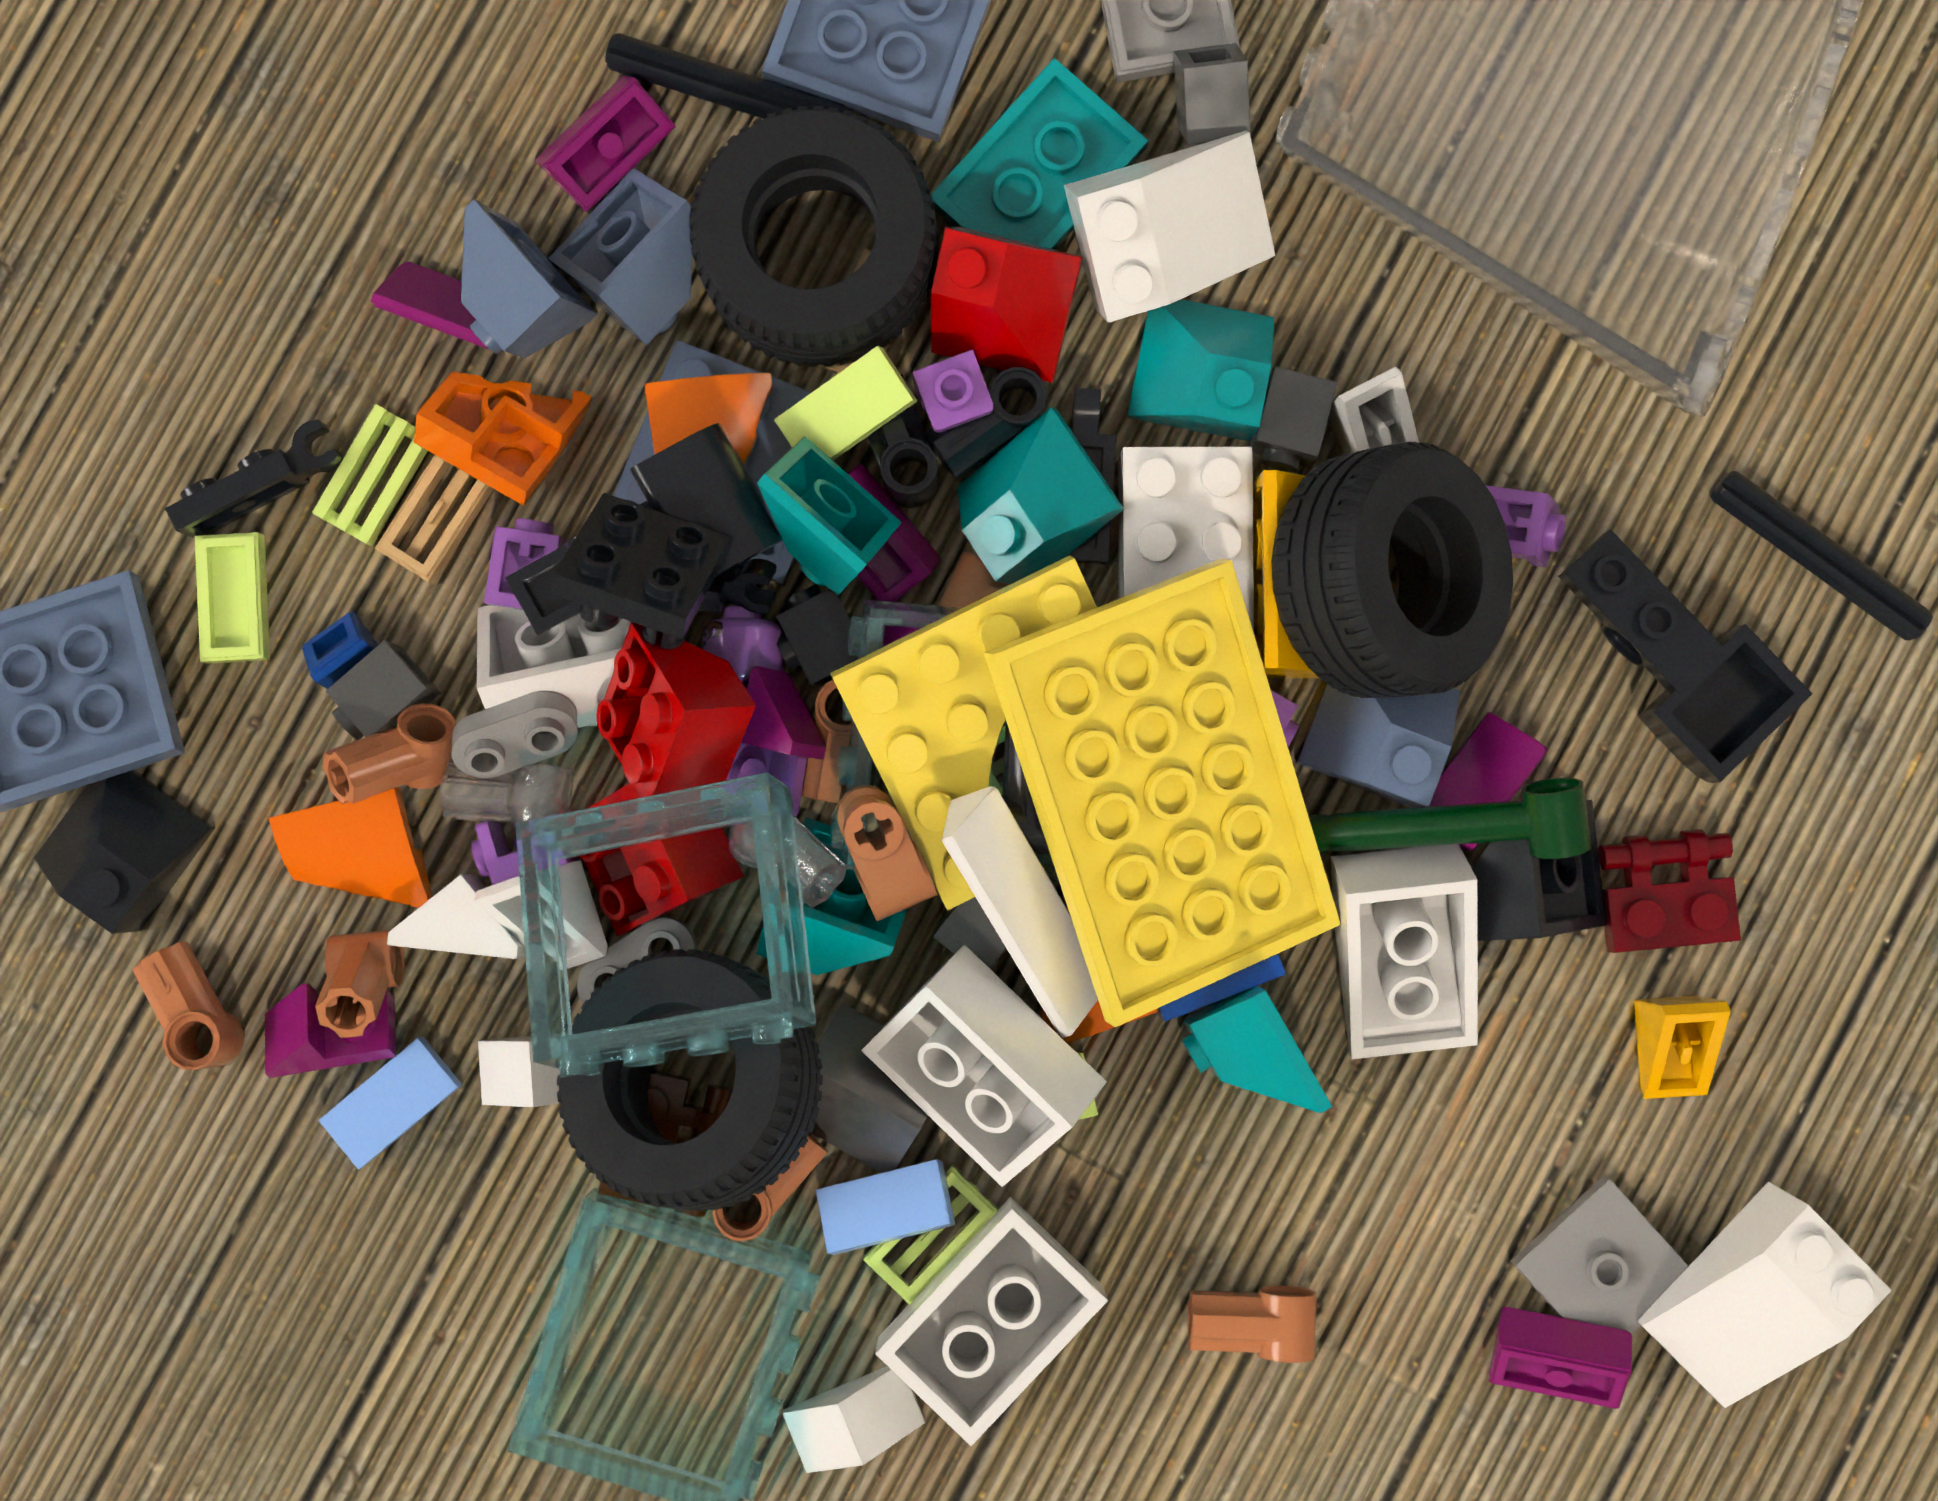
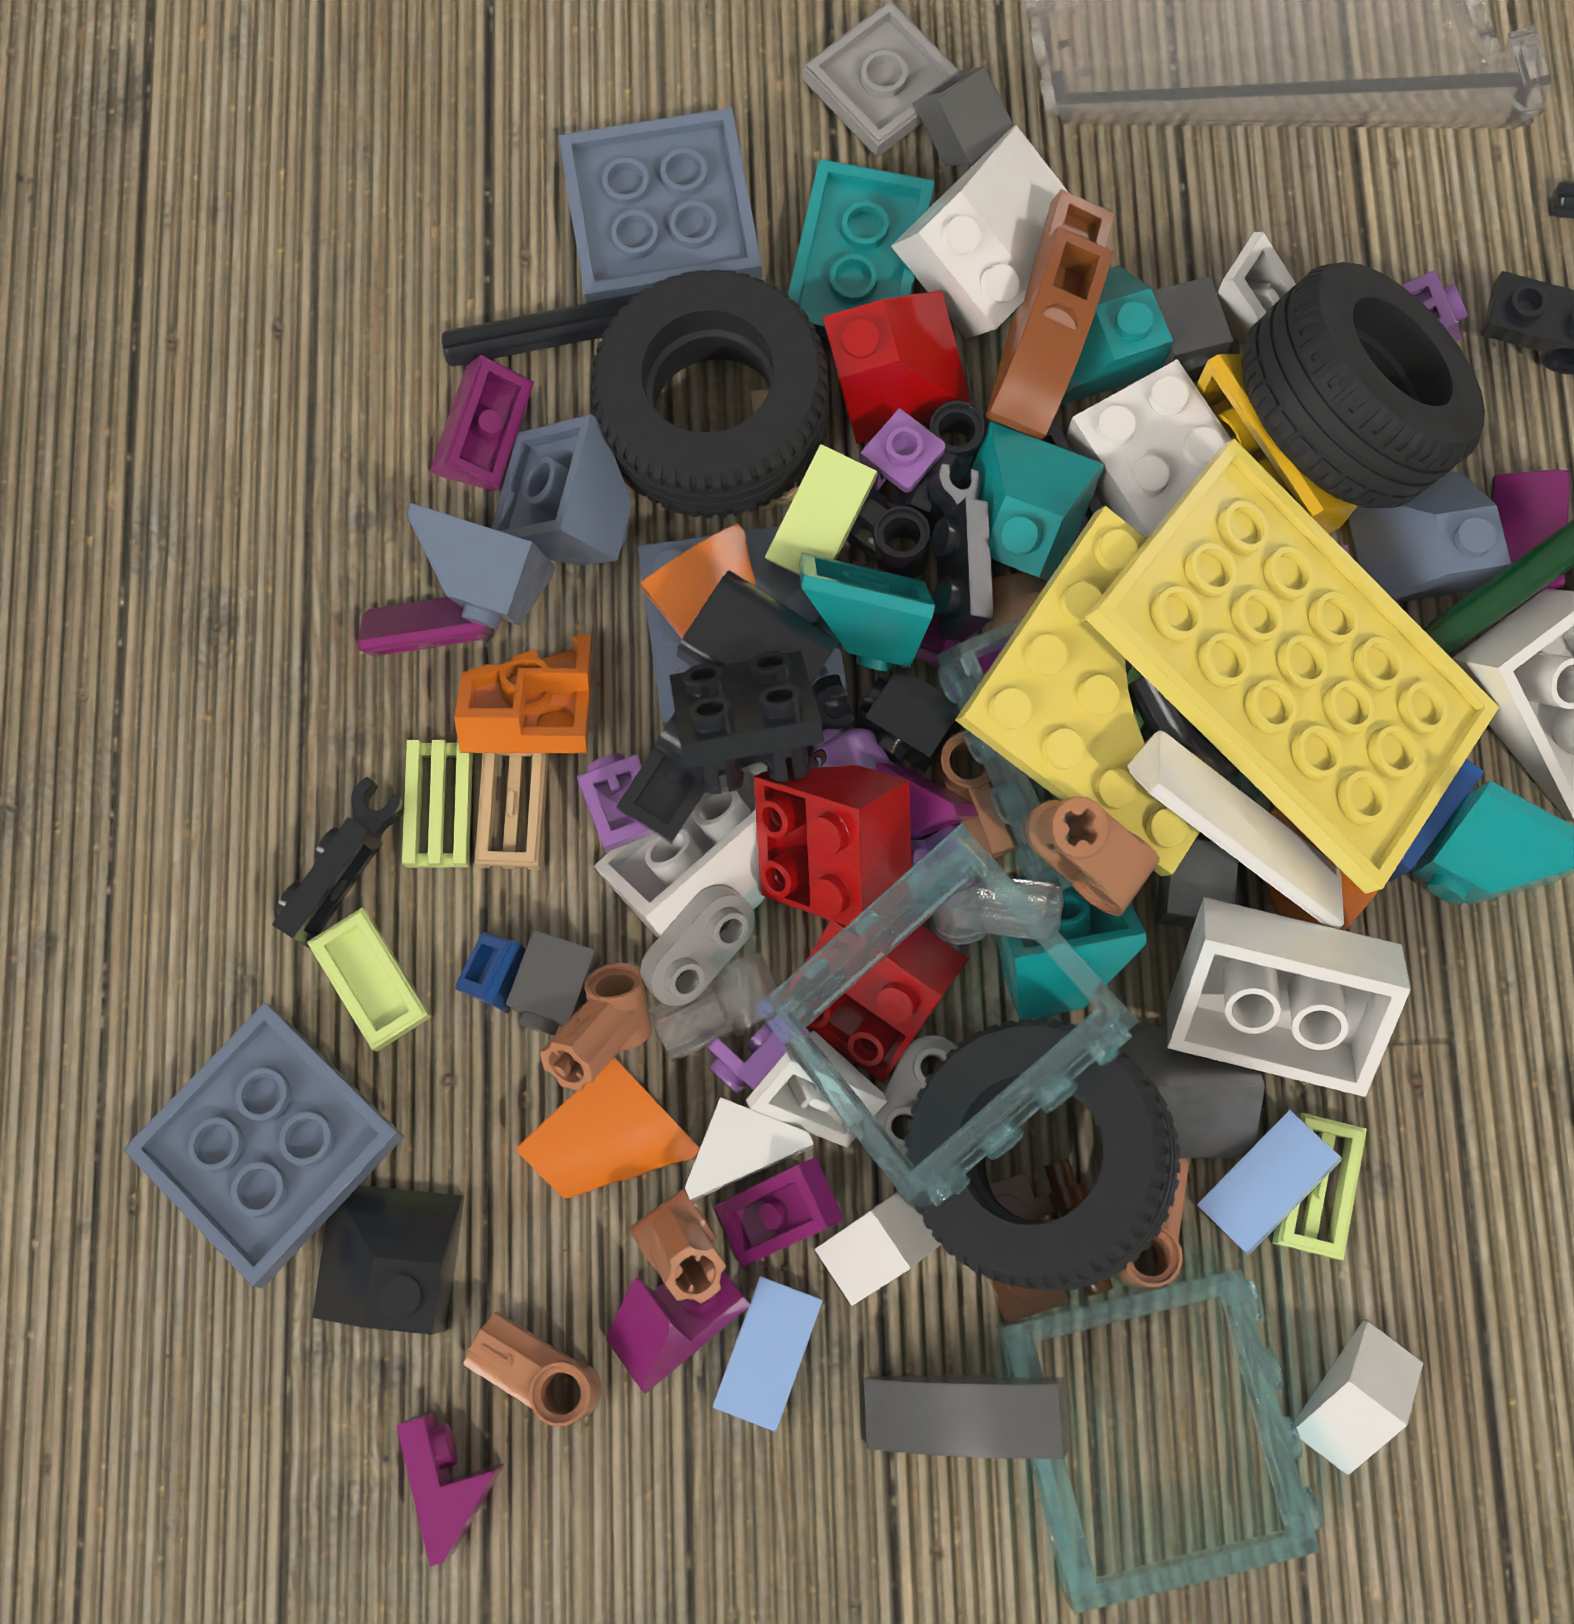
camera: 25 degrees left, 10 degrees down
(55, 1065) = (442, 1502): none -> magenta slope
(463, 996) = (779, 1212): none -> magenta slope
(516, 1251) = (968, 1416): none -> dark grey slope
(949, 513) = (963, 555): none -> black plate
(990, 1321) = (1431, 1225): white brick -> none
(1164, 340) = (1054, 317): none -> dark orange slope

